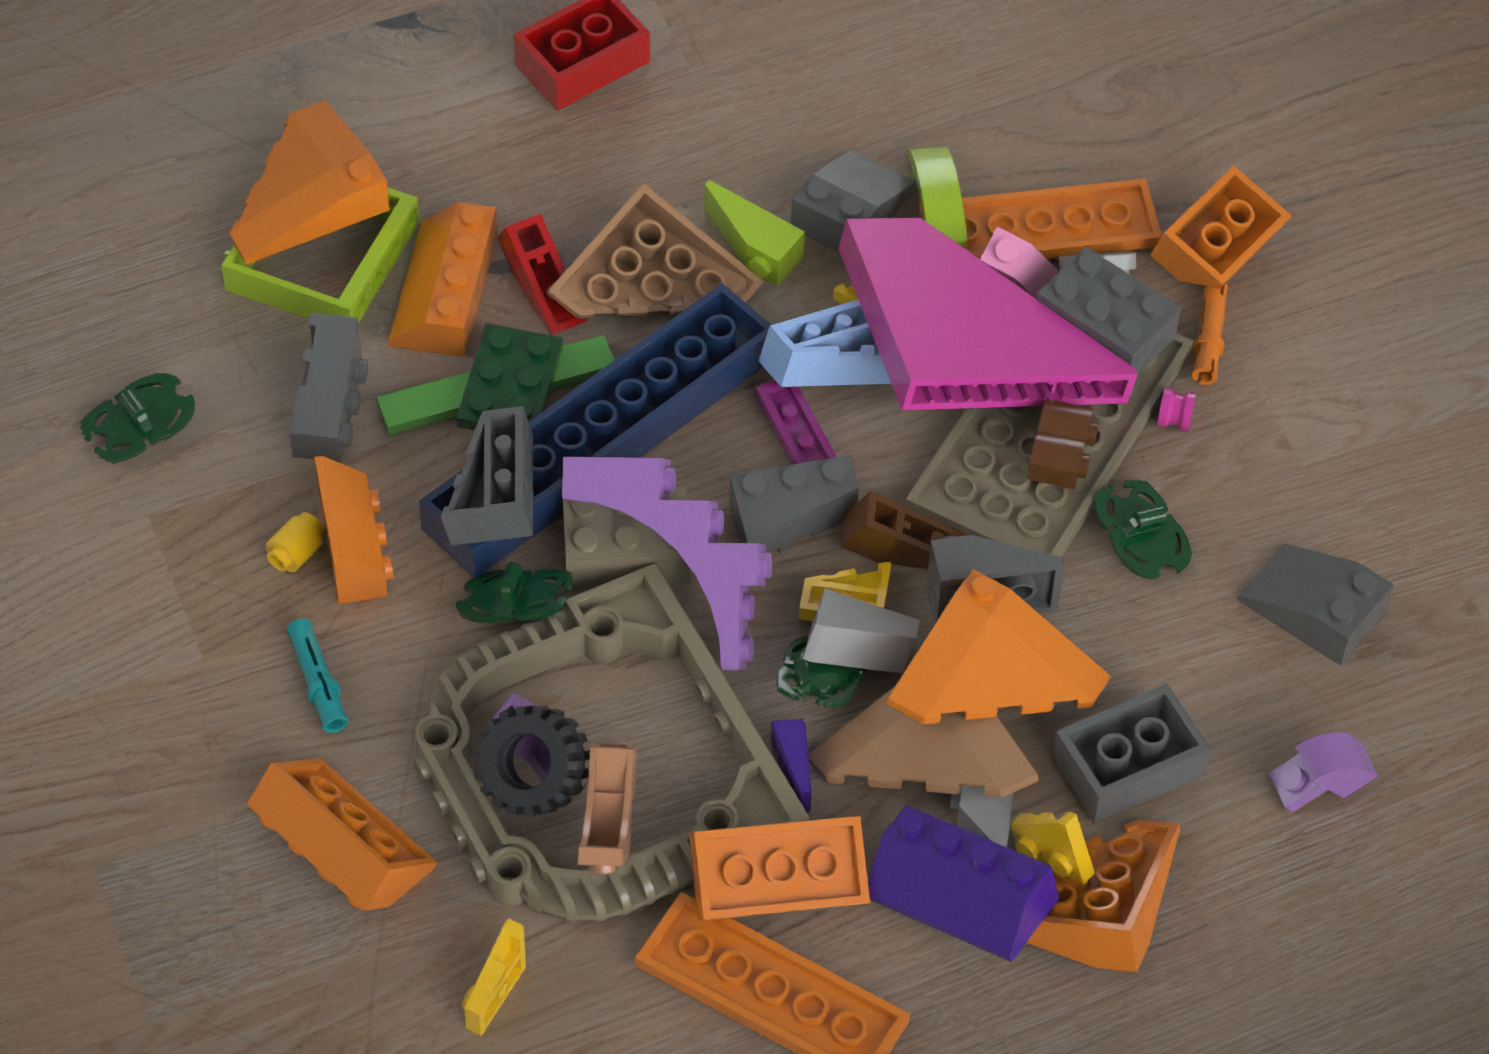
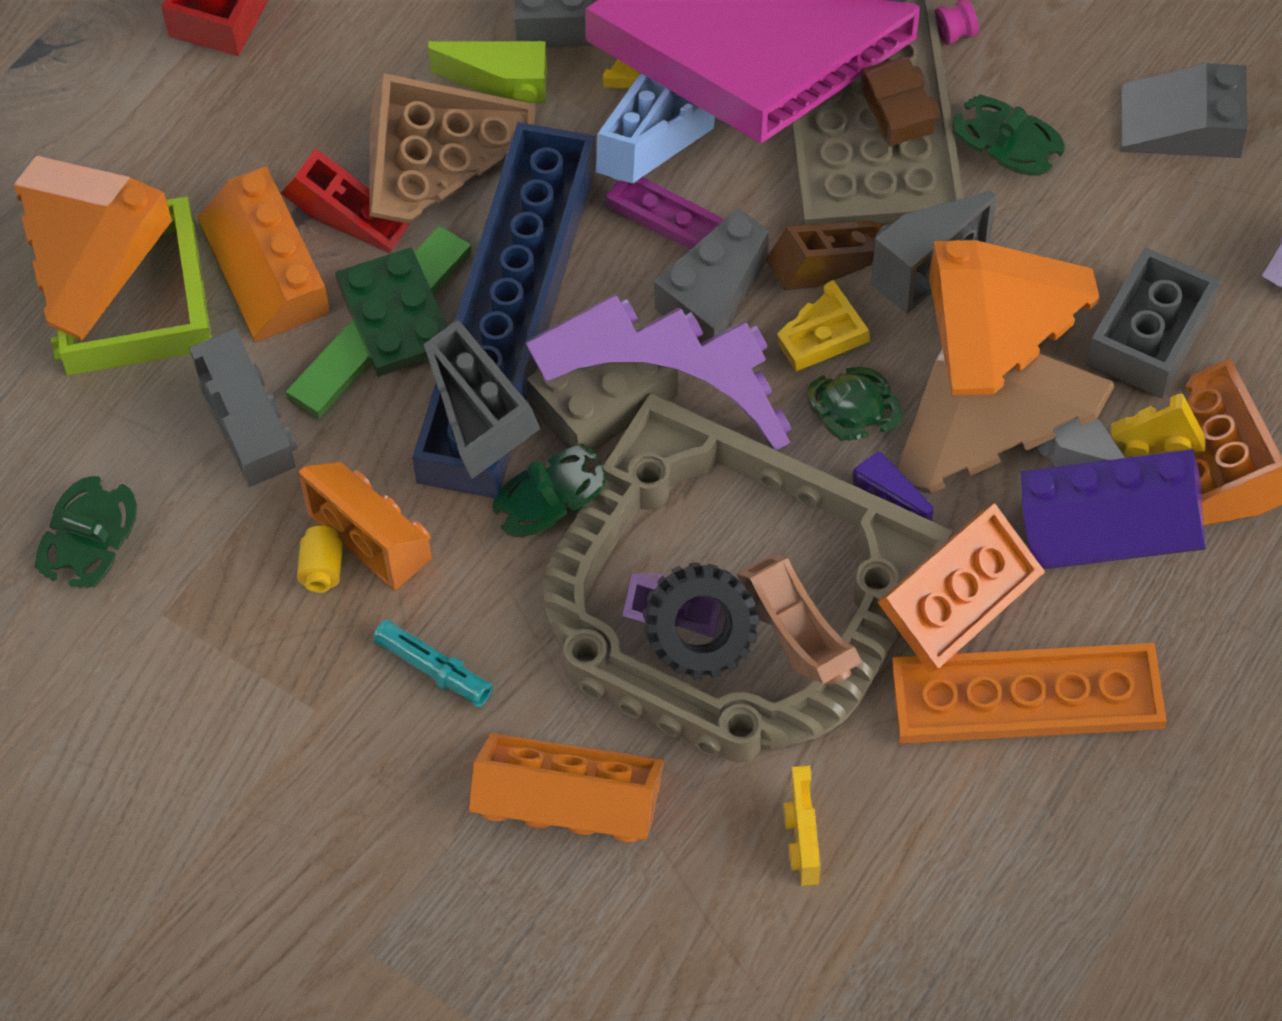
camera: 30 degrees left, 5 degrees up
(861, 635) = (865, 353): light grey slope -> none

